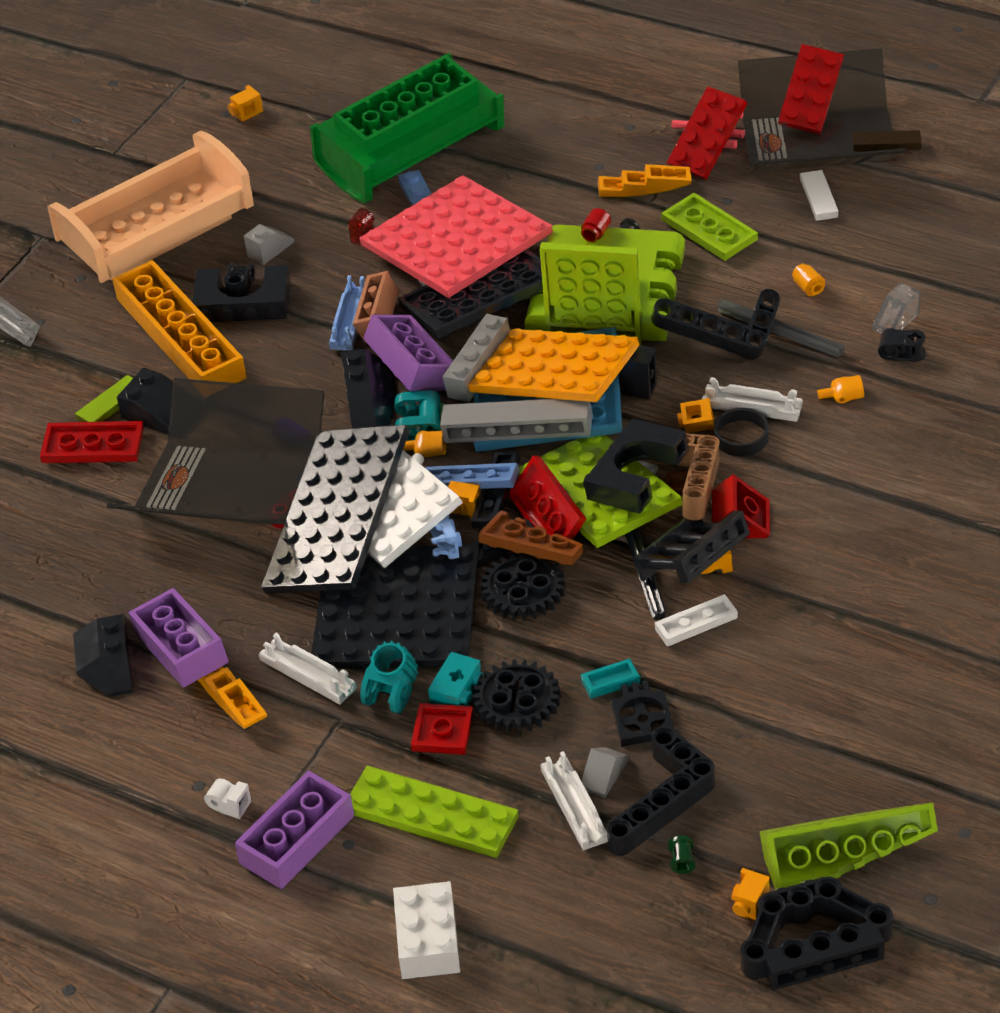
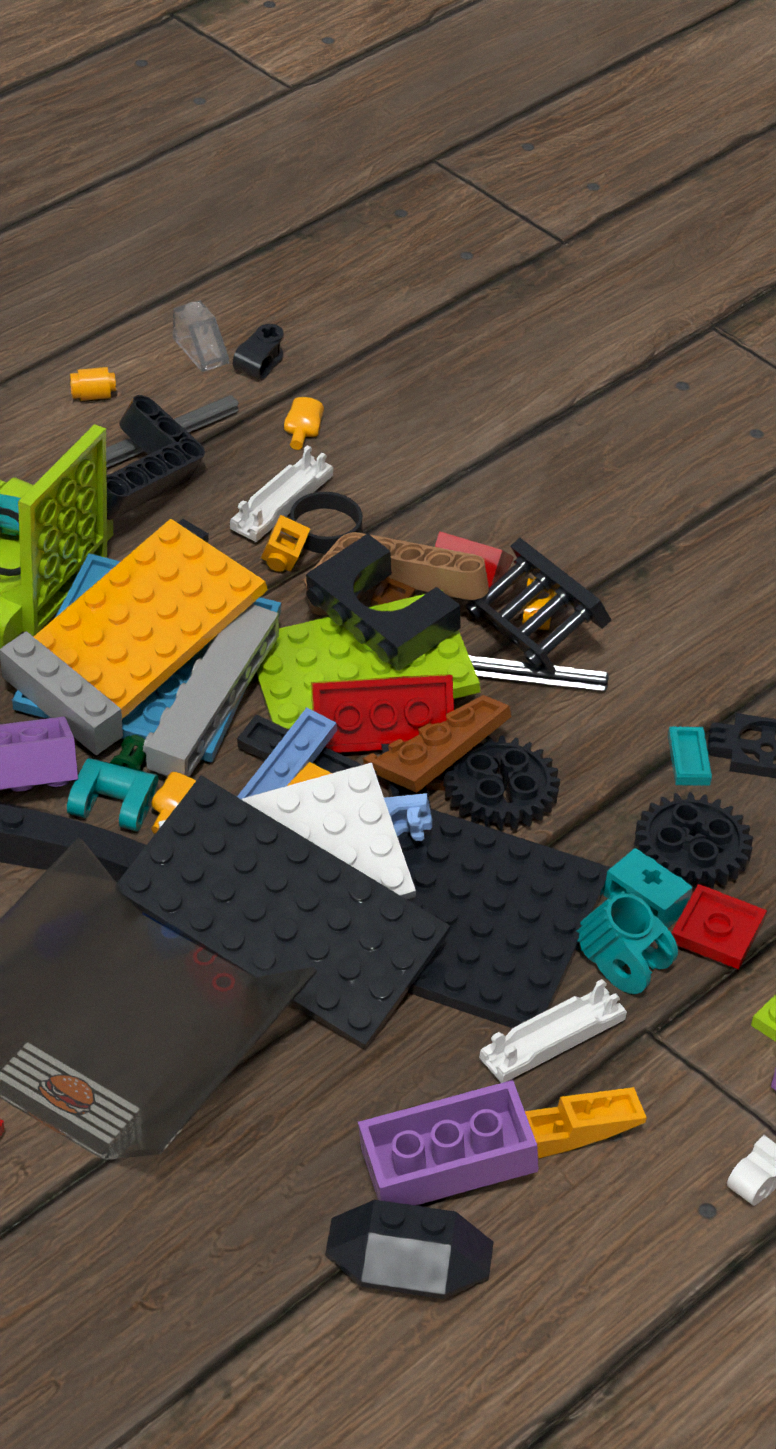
camera: 80 degrees left, 0 degrees up
(696, 620) = (633, 654): white plate -> none

